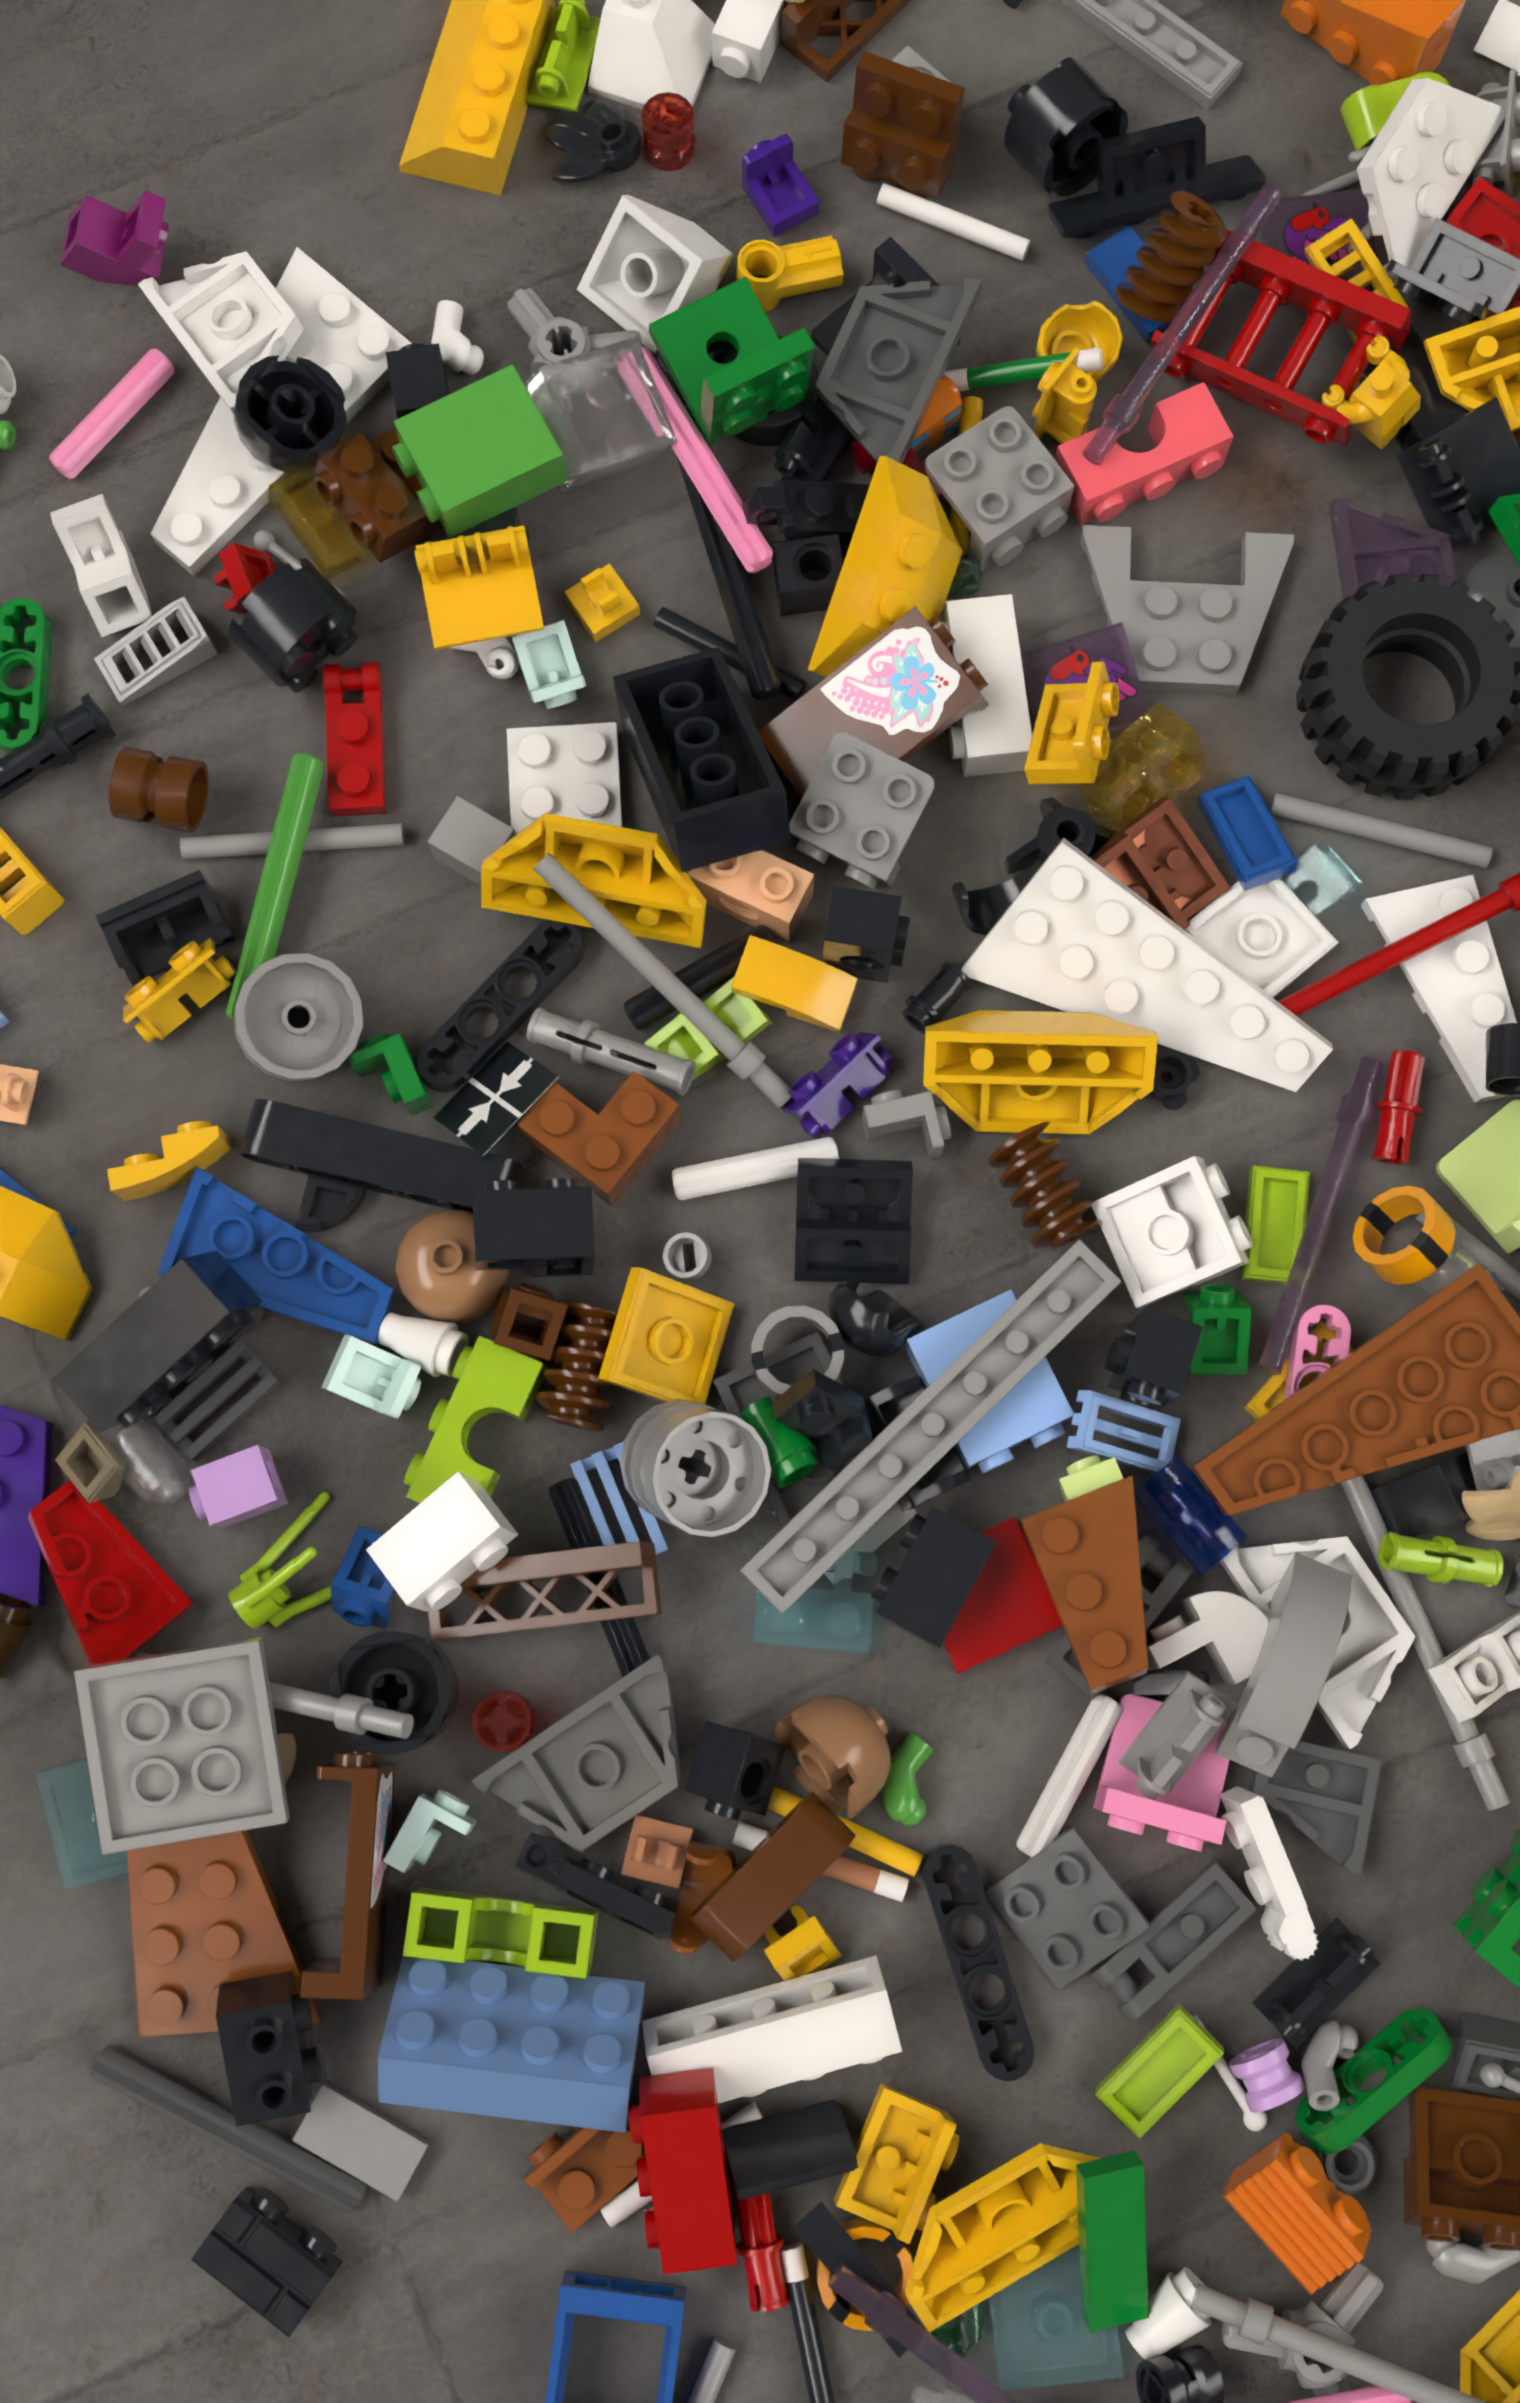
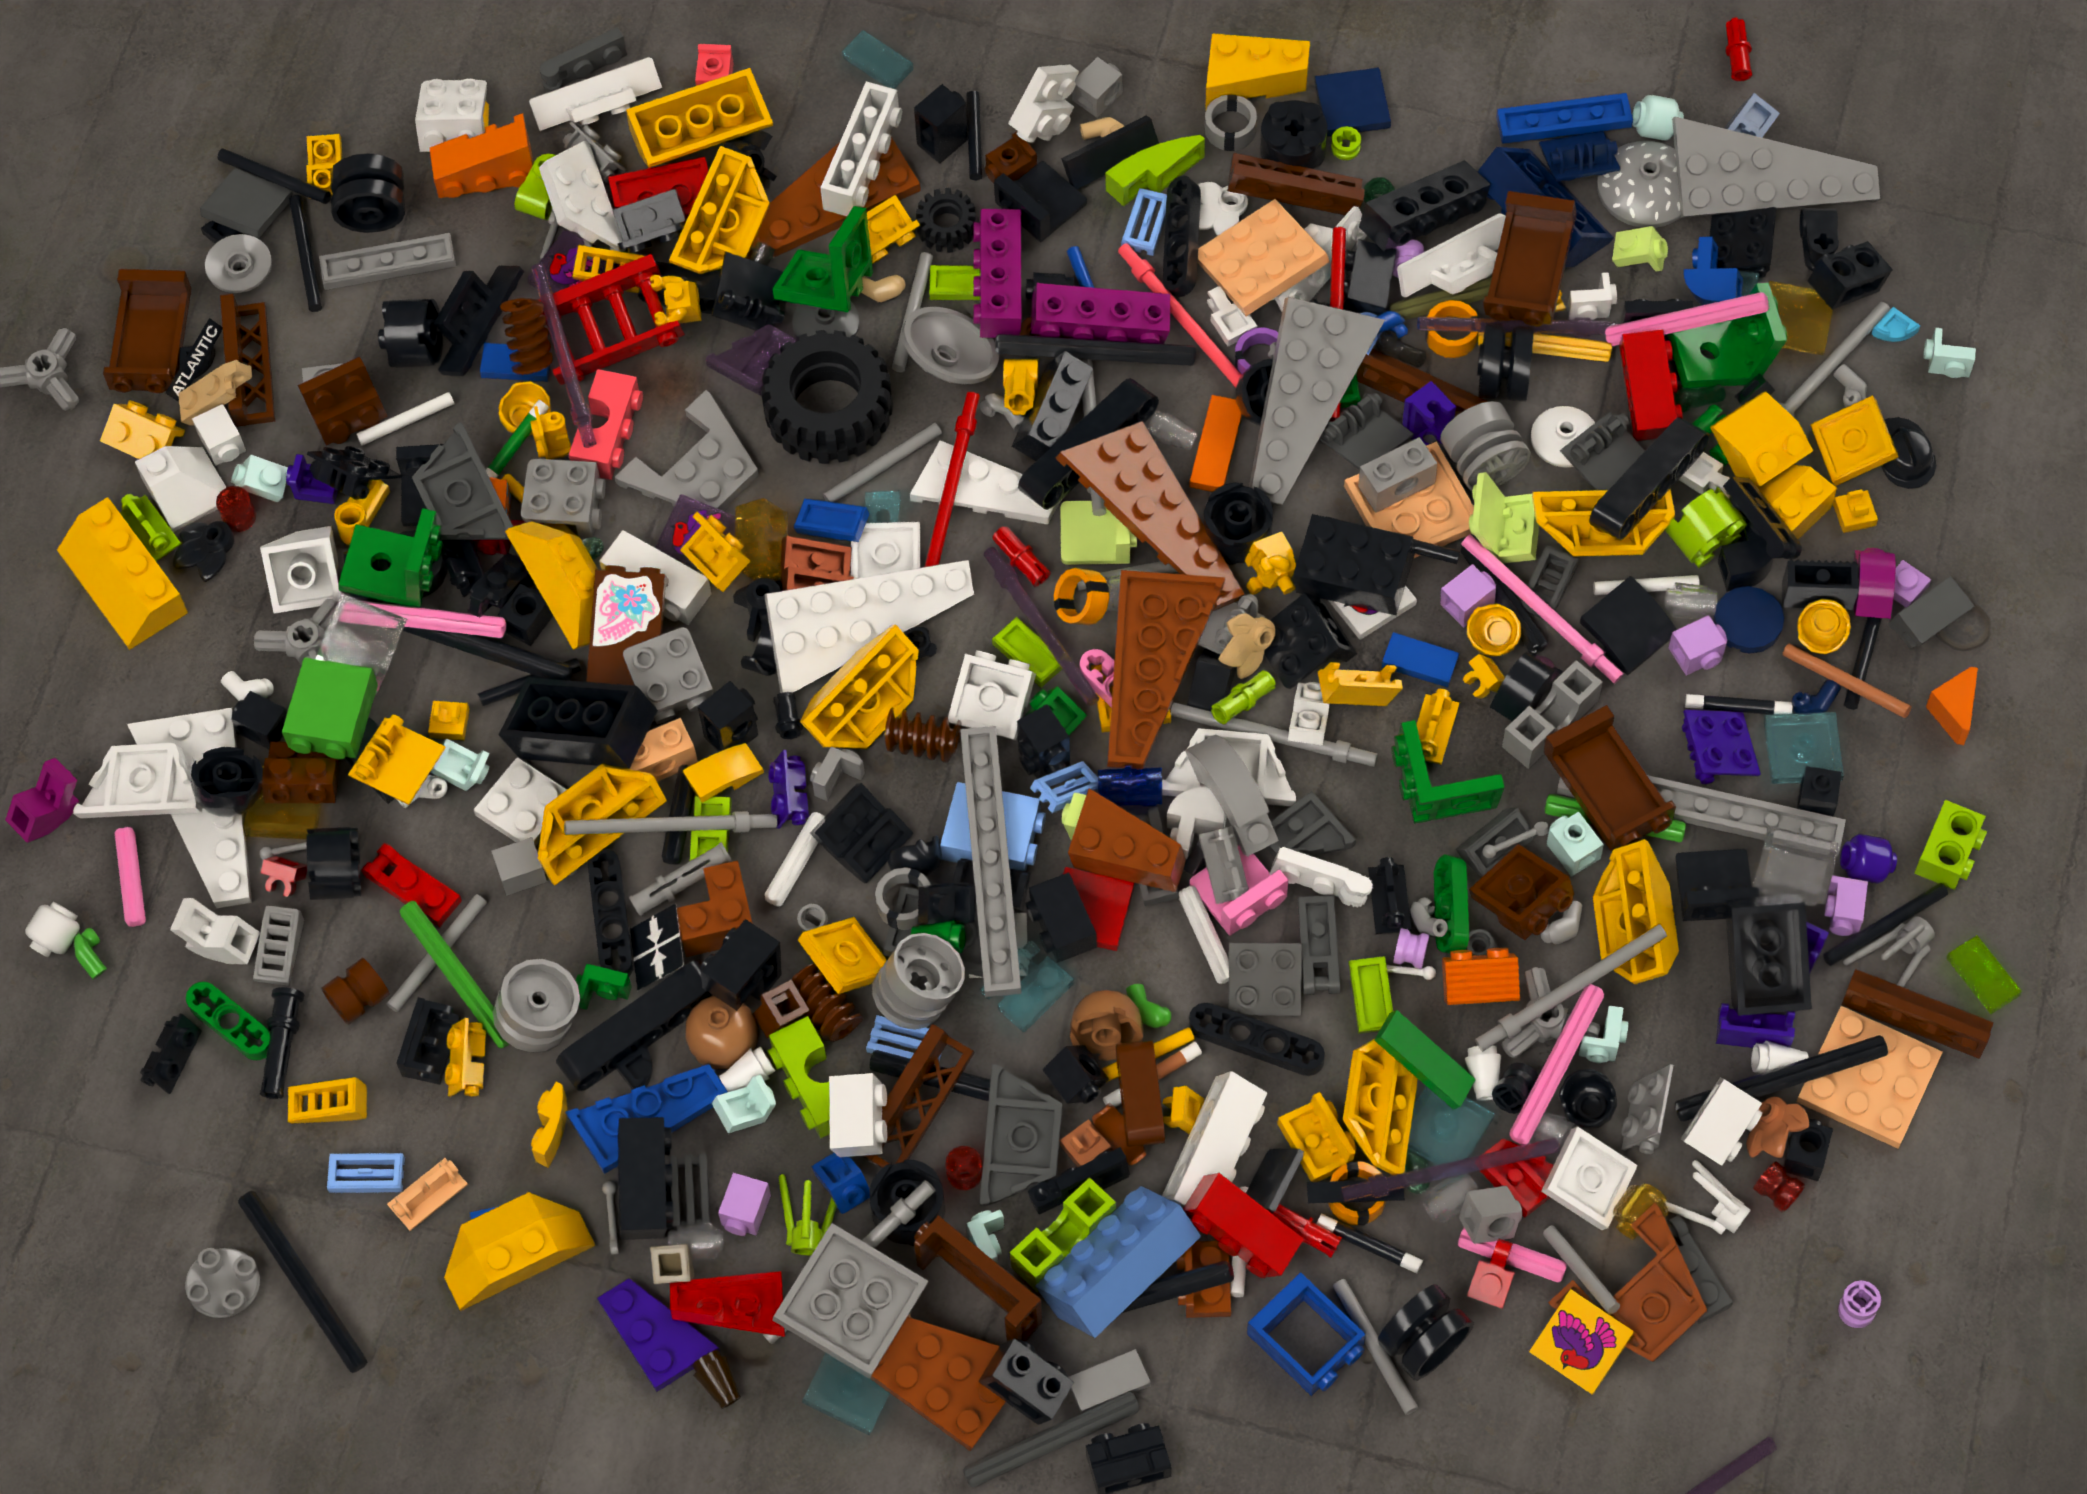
camera: 50 degrees left, 15 degrees down
(554, 2172) = (1184, 1284): none -> black axle
(730, 124) = (261, 478): none -> light aqua bracket
(823, 211) = (349, 470): none -> black hinge

